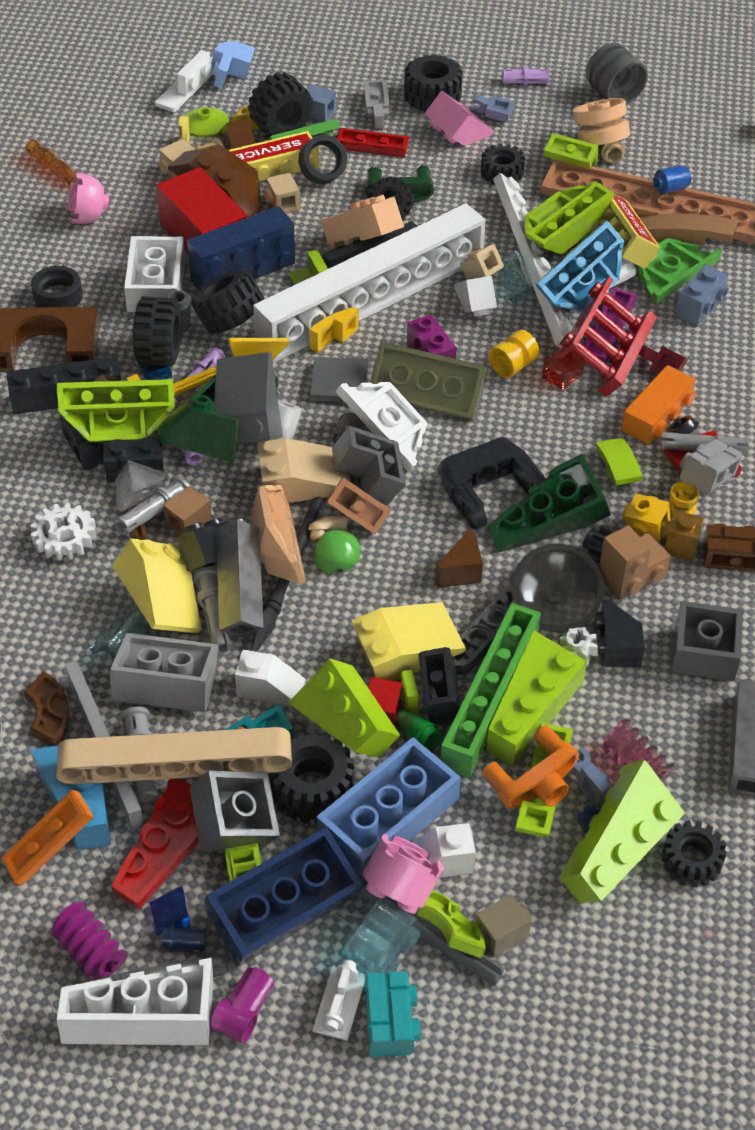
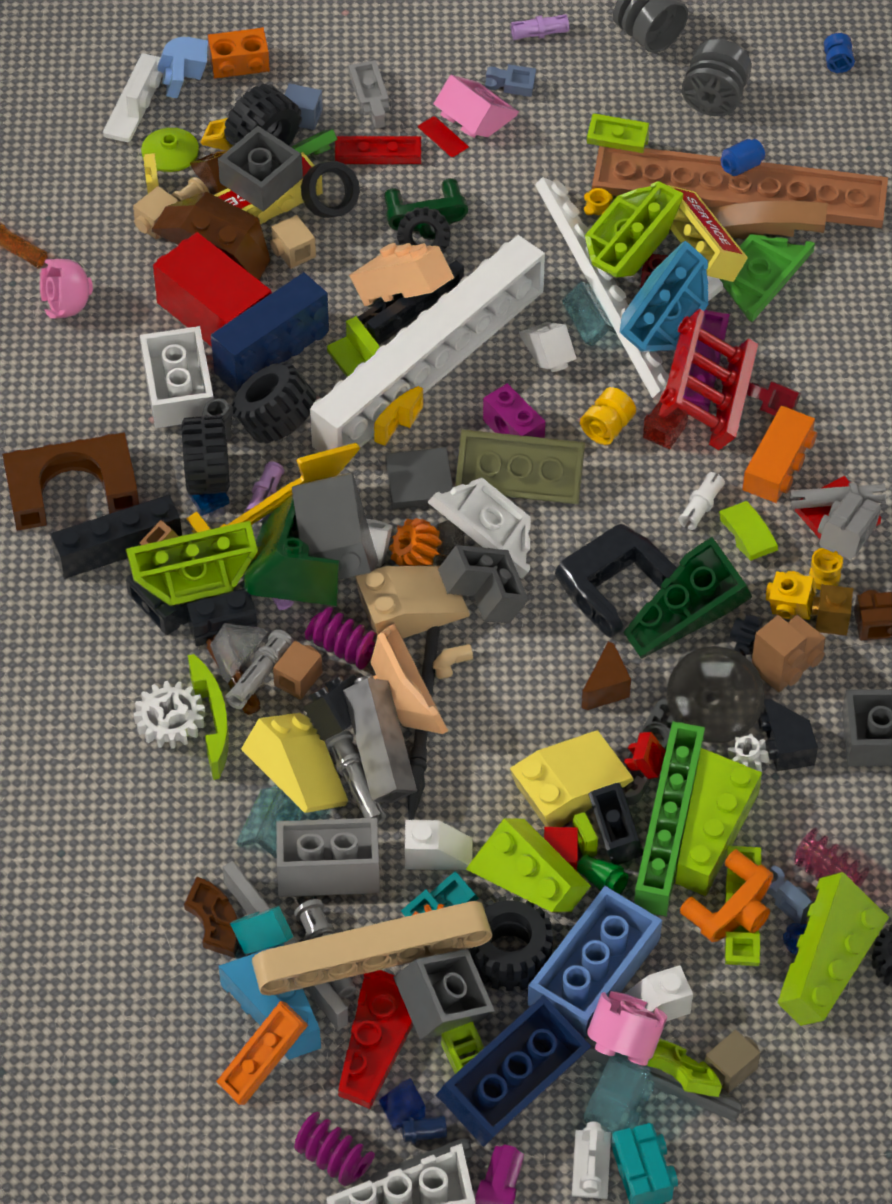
camera: 10 degrees left, 5 degrees up
(54, 276) = (66, 430): black tyre -> none
(82, 722) = (262, 930): none -> teal slope
(99, 562) = (207, 686): none -> lime slope
(231, 490) = (341, 637): none -> magenta piece
(266, 131) = (260, 168): none -> dark grey brick
(278, 58) = (238, 53): none -> orange brick
(319, 425) = (415, 543): none -> orange gear
(336, 551) = (469, 688): bright green hair -> none
(358, 505) = (483, 633): nougat slope -> none
(428, 76) = (431, 55): black tyre -> none
(428, 141) = (443, 136): none -> red sticker
(481, 629) = (647, 755): none -> red tile
(482, 262) = (547, 304): tan brick -> none
(502, 160) = (539, 148): black tyre -> none
(540, 196) = (597, 201): none -> yellow plate
(581, 432) = (701, 501): none -> white pin
(602, 121) = (646, 88): light nougat wheel -> none
(613, 152) = (663, 118): tan cone -> none
(661, 122) = (716, 77): none -> dark grey wheel
(683, 425) = (810, 477): black hat -> none
(701, 295) = (802, 306): sand blue brick -> none

